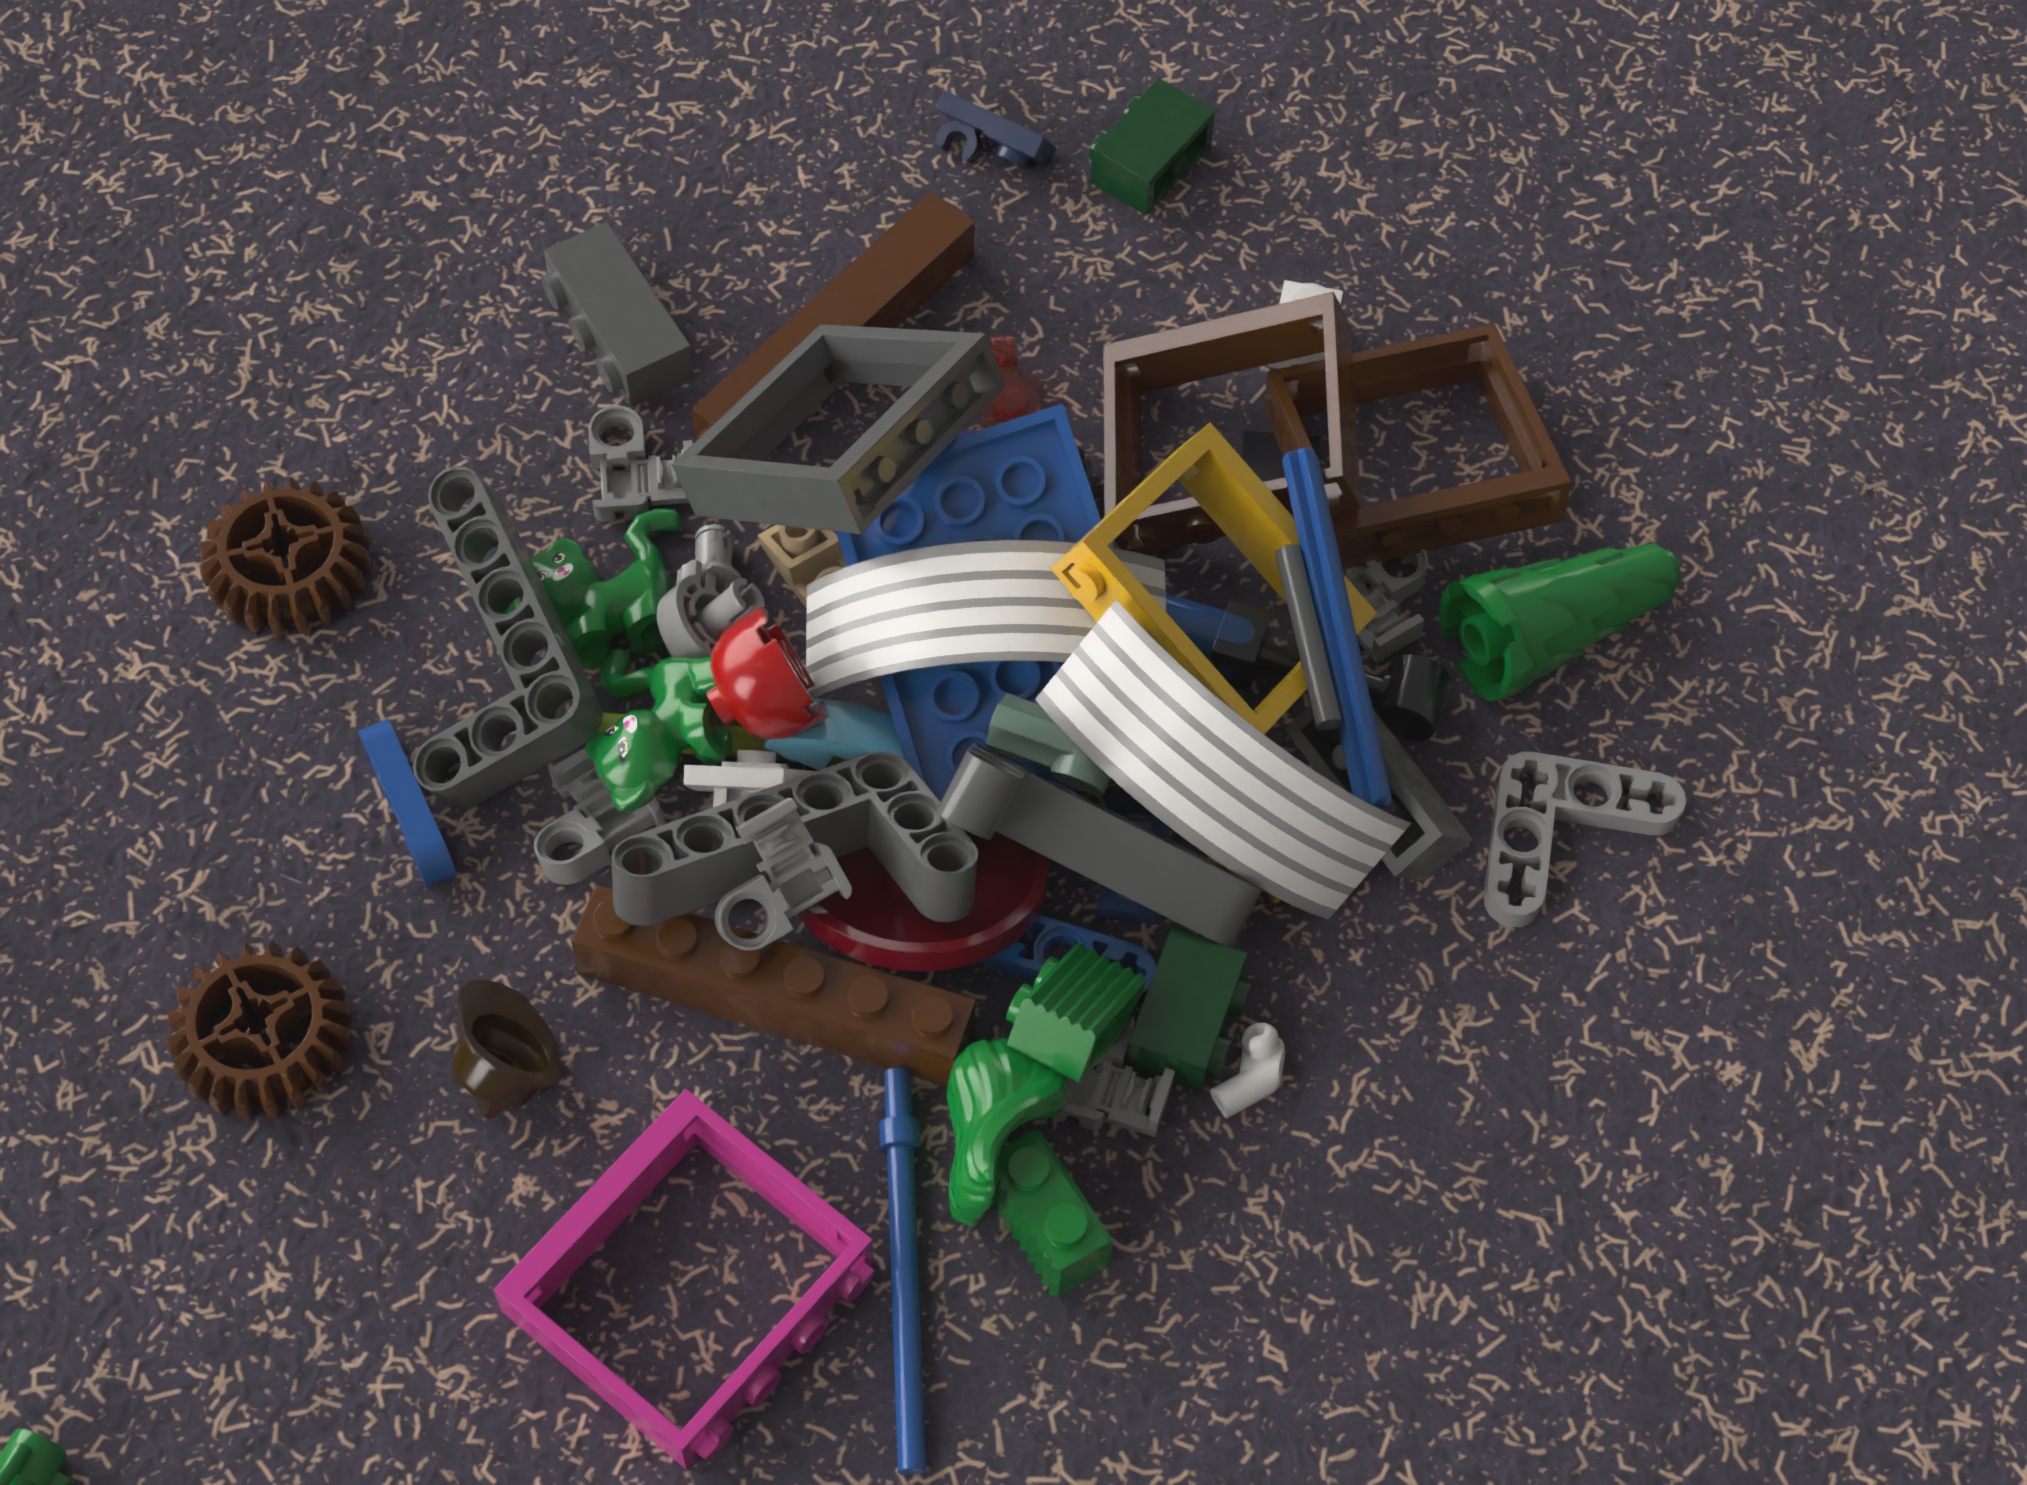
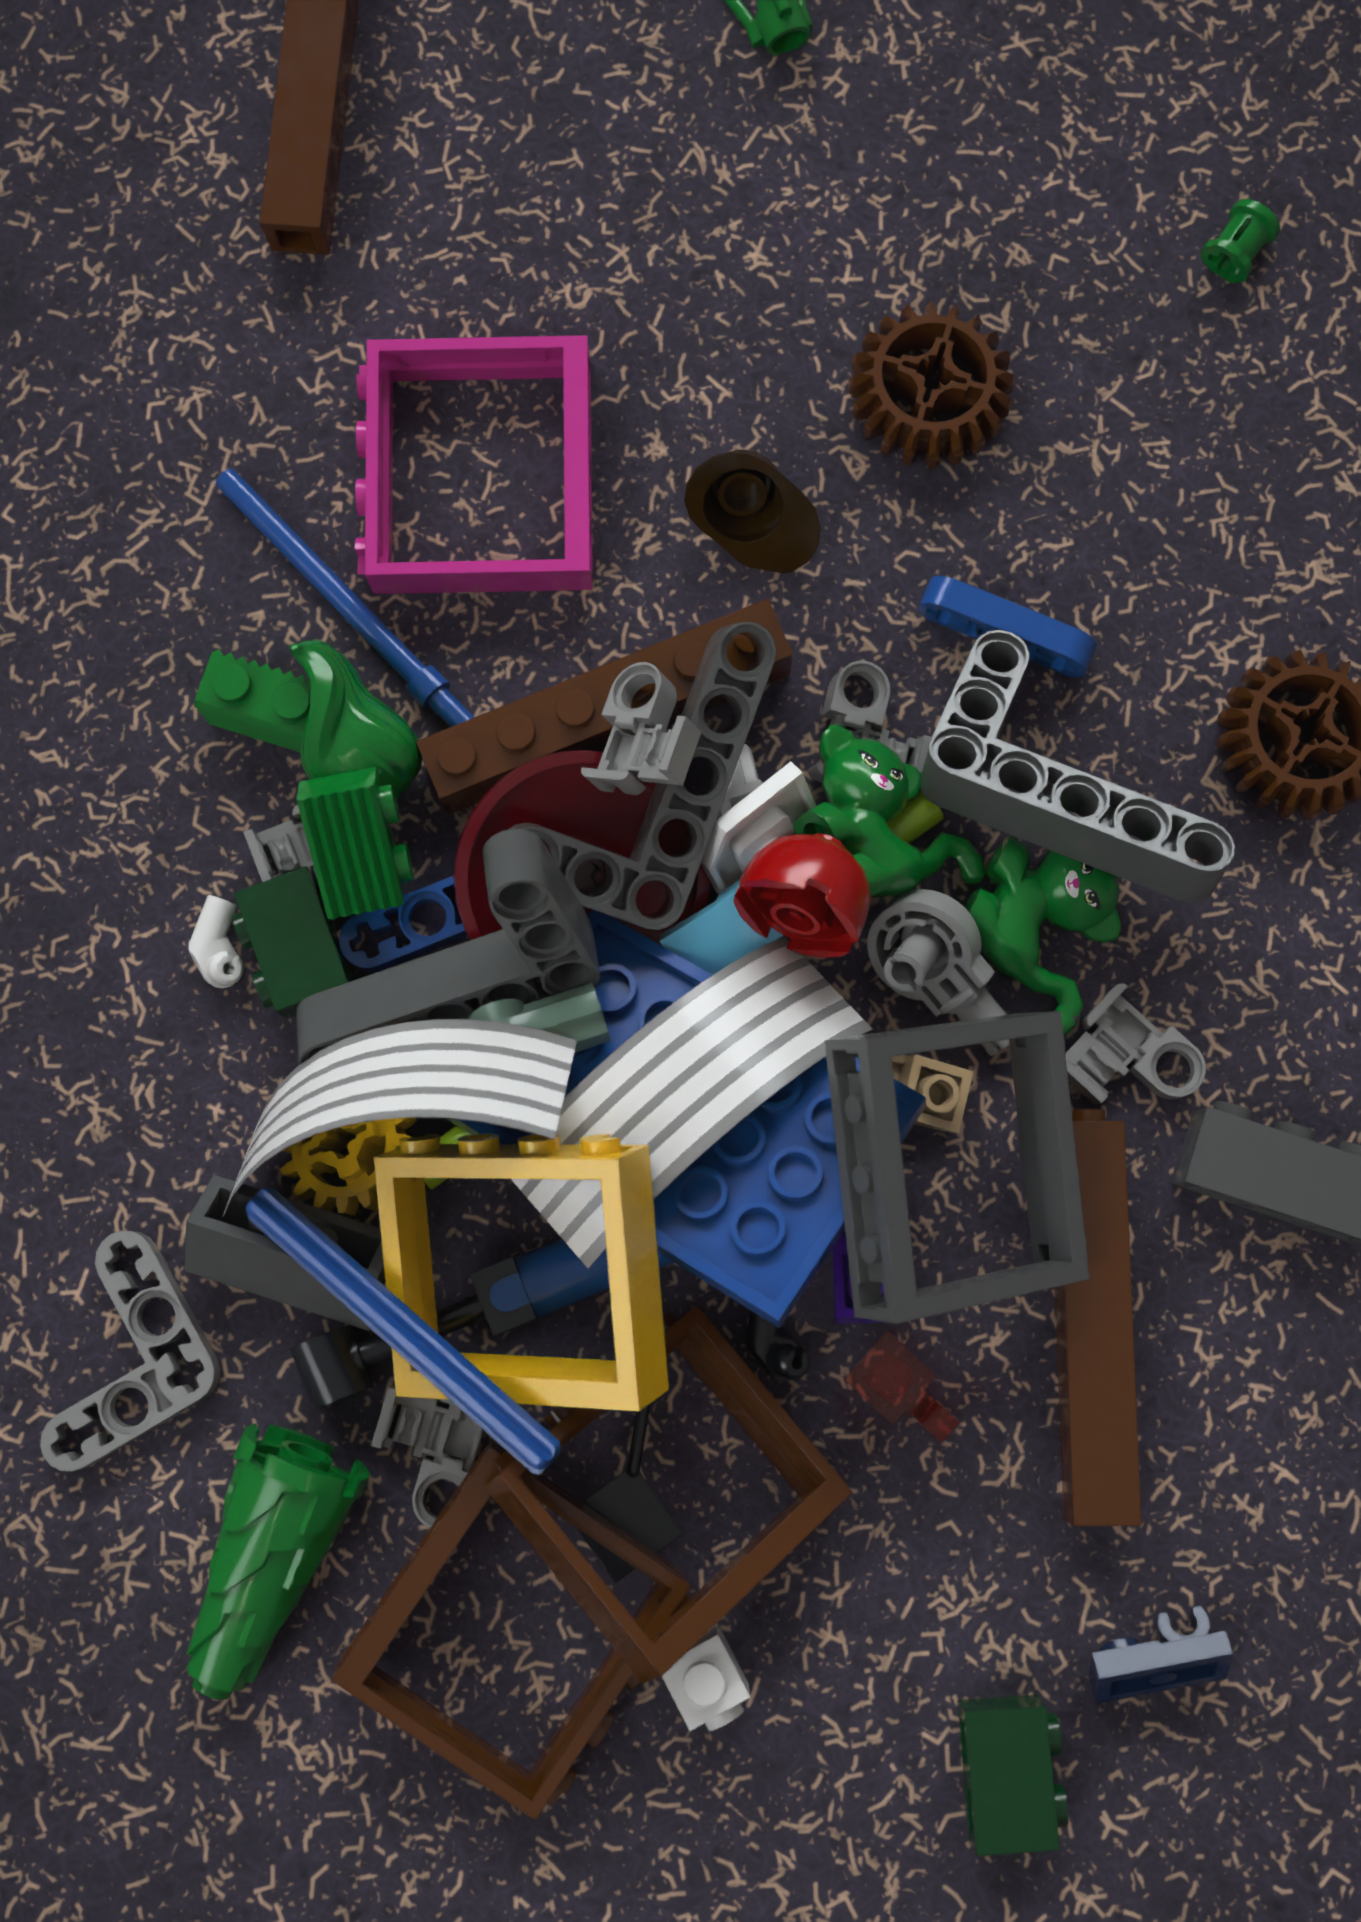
camera: 145 degrees right, 20 degrees up
(1308, 637) = (412, 1294): dark grey bar -> none

